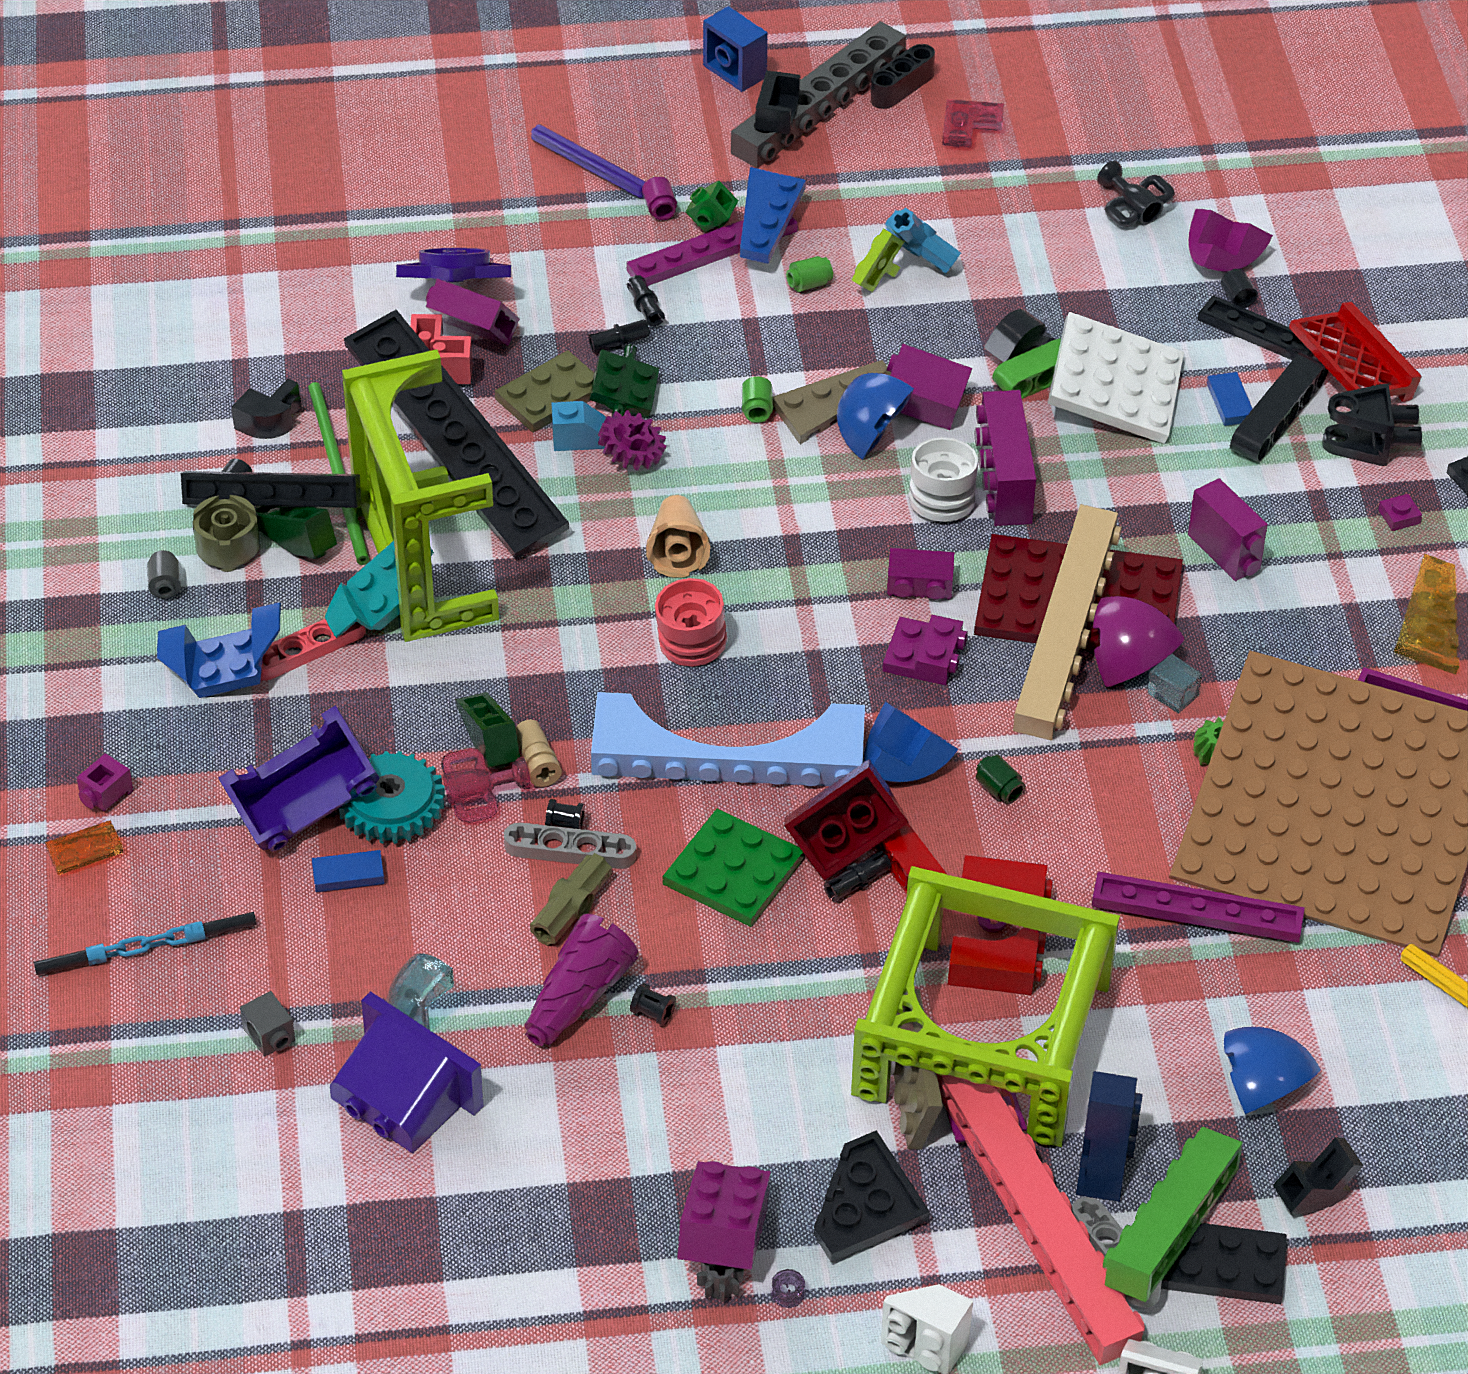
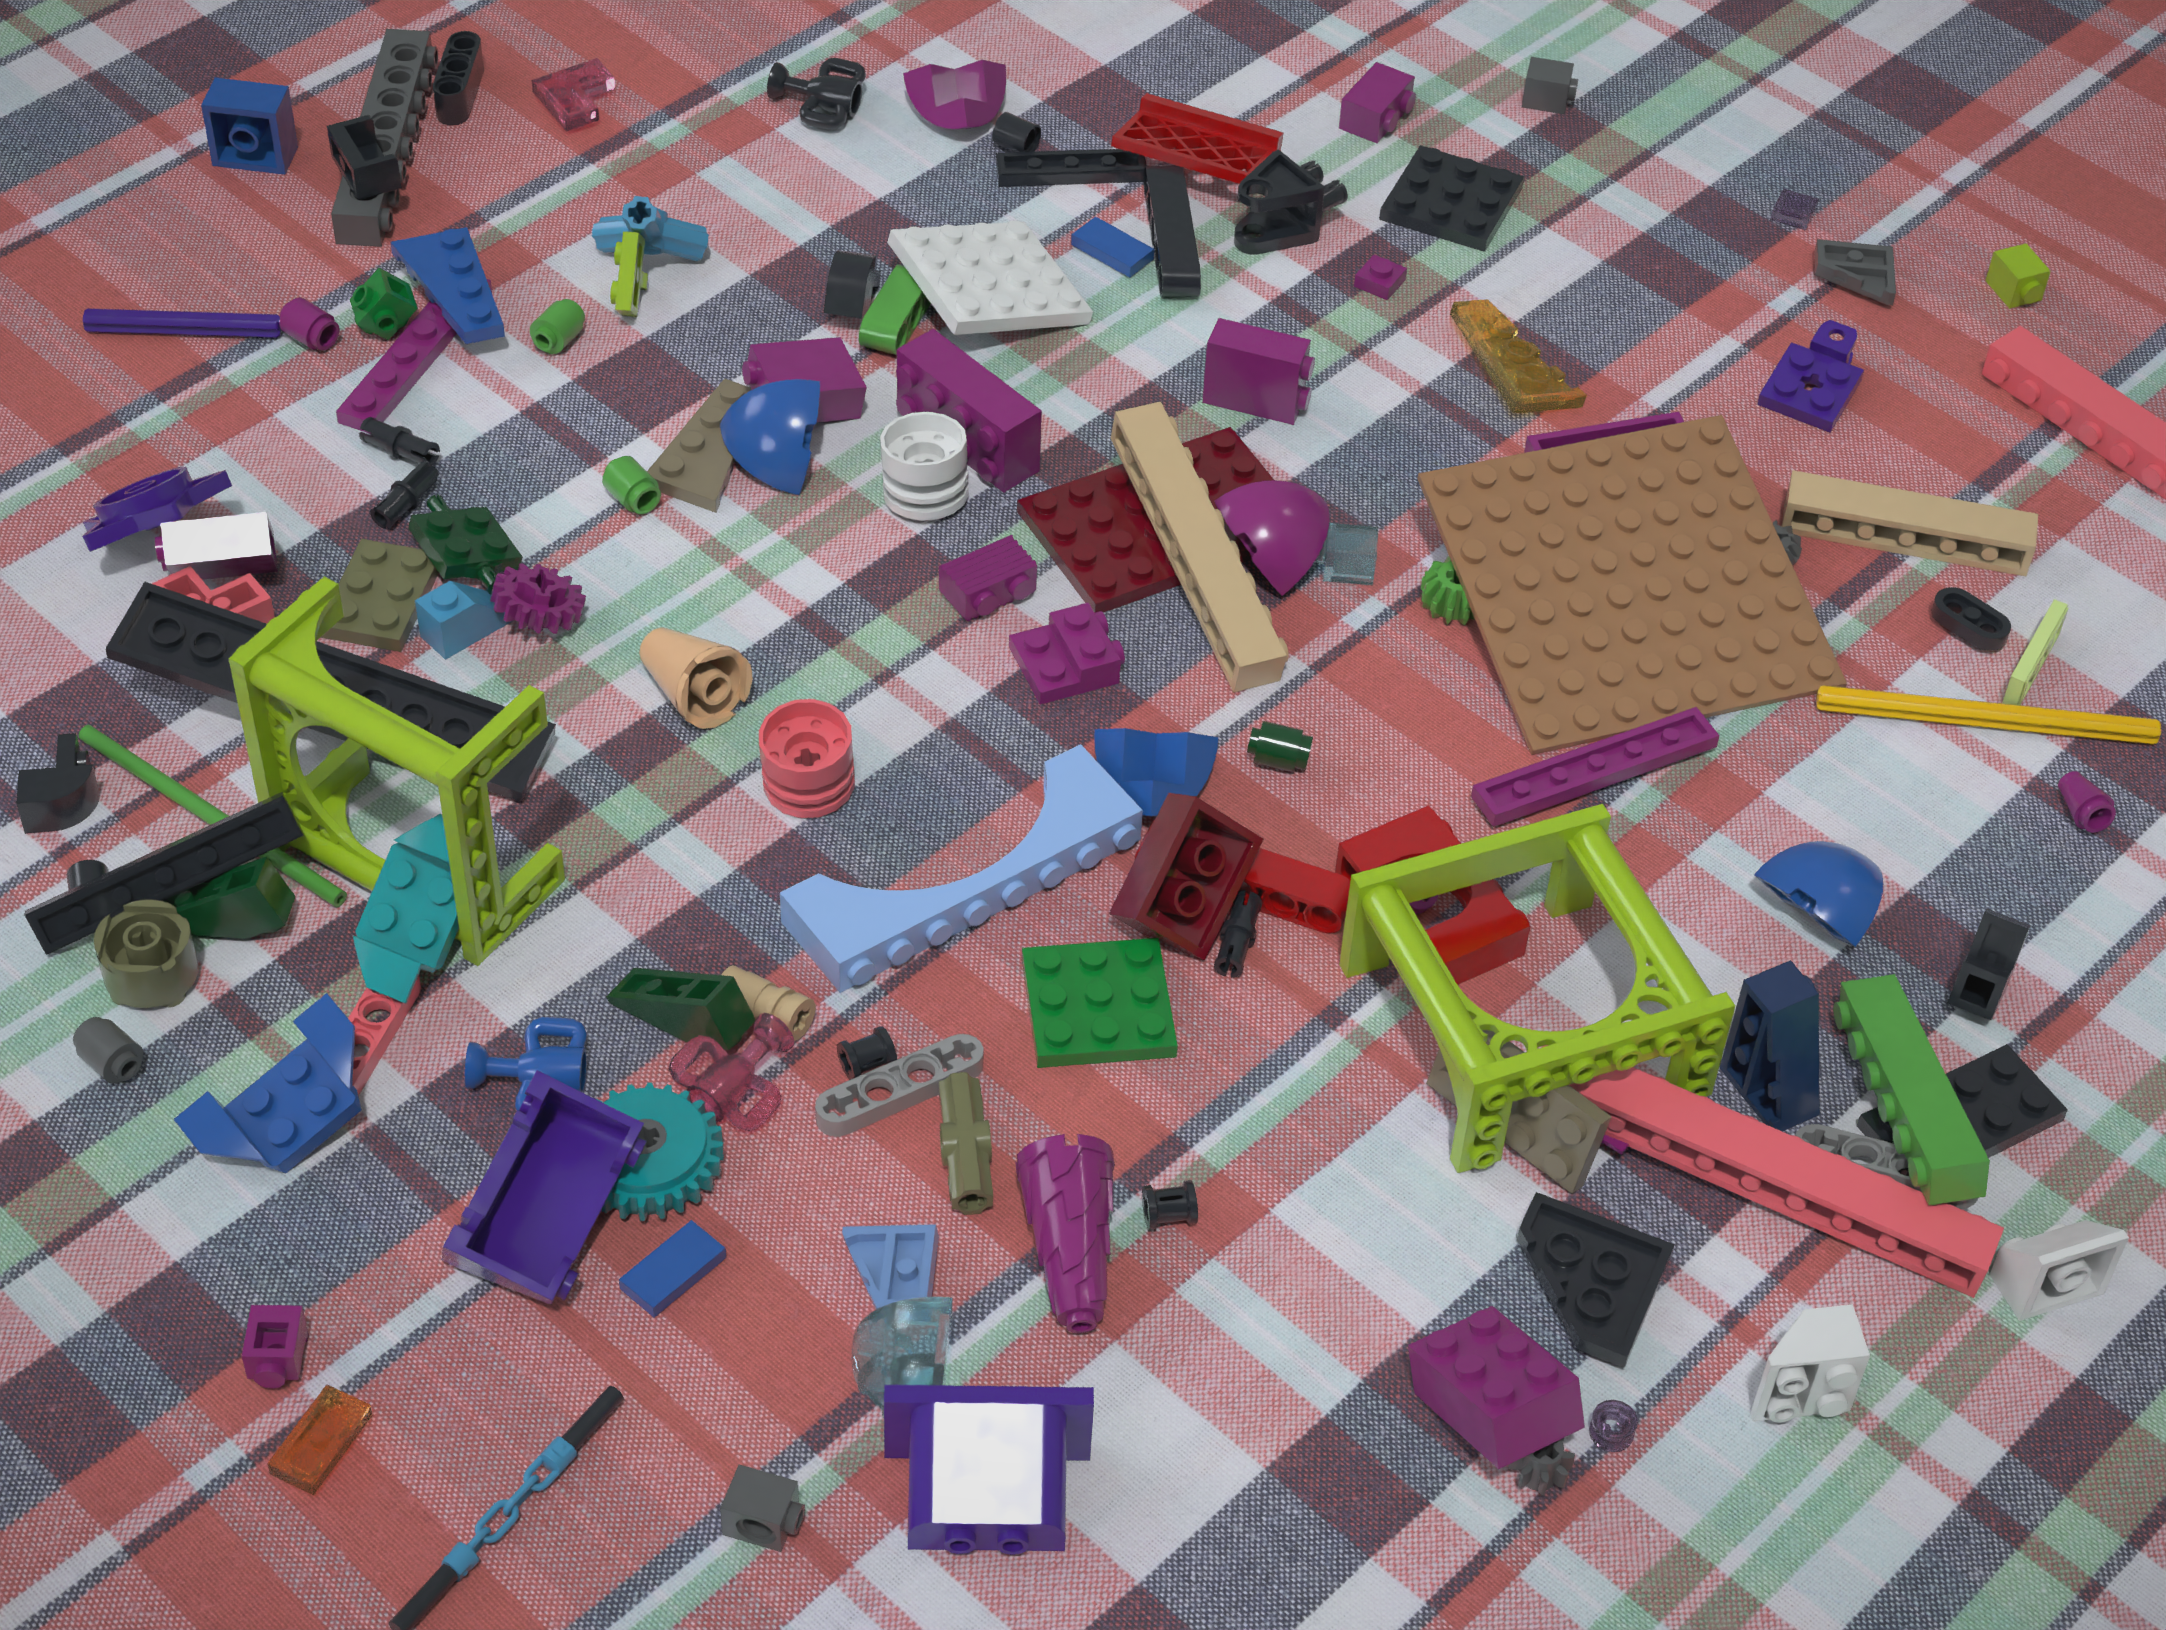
camera: 40 degrees left, 0 degrees up
(380, 719) = (562, 1063): none -> blue piece
(468, 942) = (894, 1260): none -> medium blue wing

